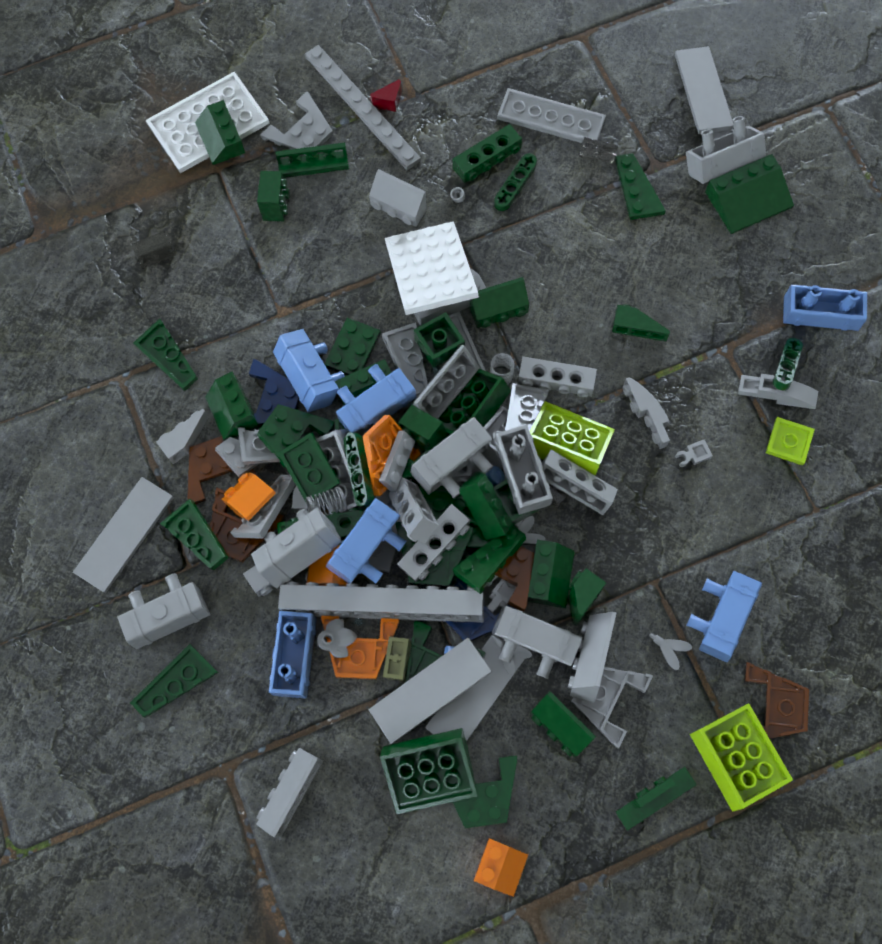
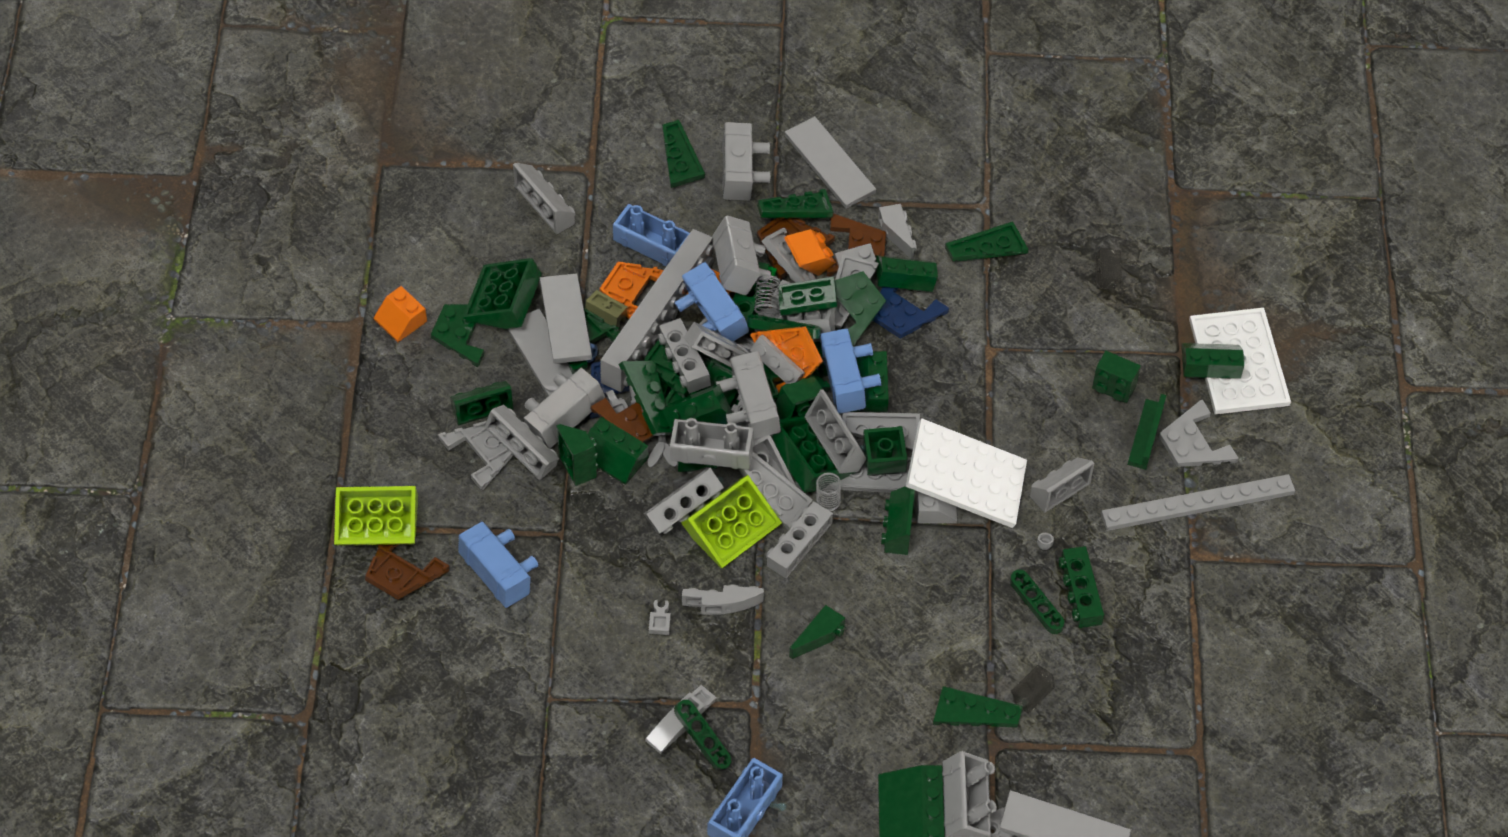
camera: 110 degrees right, 15 degrees down
(306, 369) = (911, 336): medium blue piece -> none
(339, 636) = (645, 271): light grey plate -> none
(352, 347) = (920, 390): dark green plate -> none
(387, 97) = (1195, 527): dark red slope -> none
(550, 116) = (1102, 671): light grey tile -> none
(655, 798) = (384, 446): dark green bracket -> none
(667, 647) = (498, 514): light grey piece -> none
(790, 441) = (627, 706): lime plate -> none

